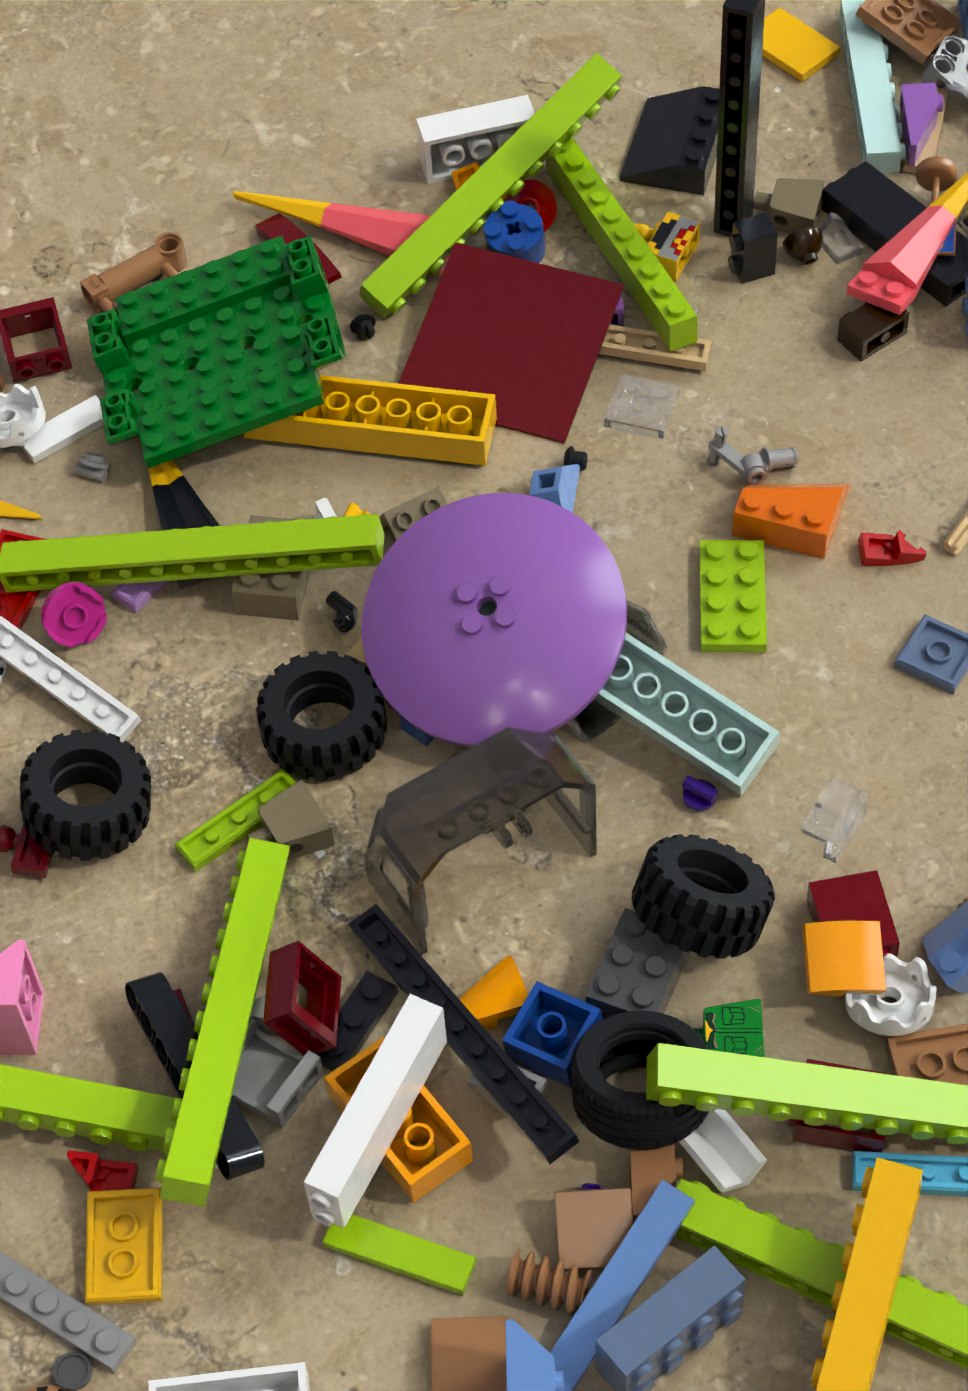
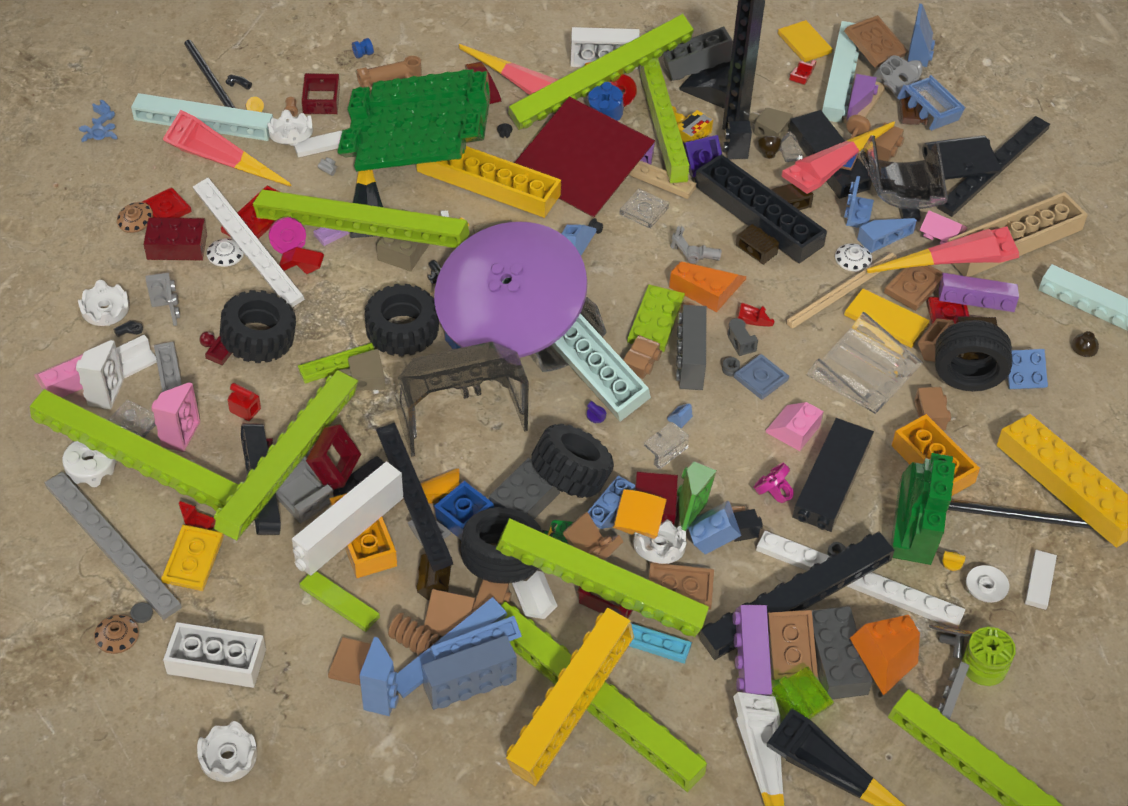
camera: 10 degrees right, 5 degrees down
(73, 239) = (362, 48): none -> blue wheel
(108, 938) = (243, 402): none -> red brick
(117, 647) = (305, 259): none -> red slope
(539, 1177) = (431, 580): none -> dark brown brick
(639, 111) = (699, 53): none -> dark grey brick
(663, 1264) = (479, 636): none -> medium blue plate
(708, 286) = (701, 152): none -> dark purple slope
(737, 670) = (642, 356): none -> medium nougat brick
(781, 1035) = (586, 537): none -> medium nougat bracket
(784, 952) = (606, 507): none -> medium blue slope
(807, 99) = (802, 72): none -> red slope
(816, 636) = (691, 347): none -> dark grey brick
(832, 359) = (760, 206): none -> black brick
(836, 758) = (681, 415): none -> medium blue slope
(849, 422) = (757, 244): none -> dark brown brick
(877, 644) = (730, 361): none -> dark grey bush
(883, 595) = (740, 337): none -> dark grey leg
(915, 896) = (694, 492): none -> bright green slope

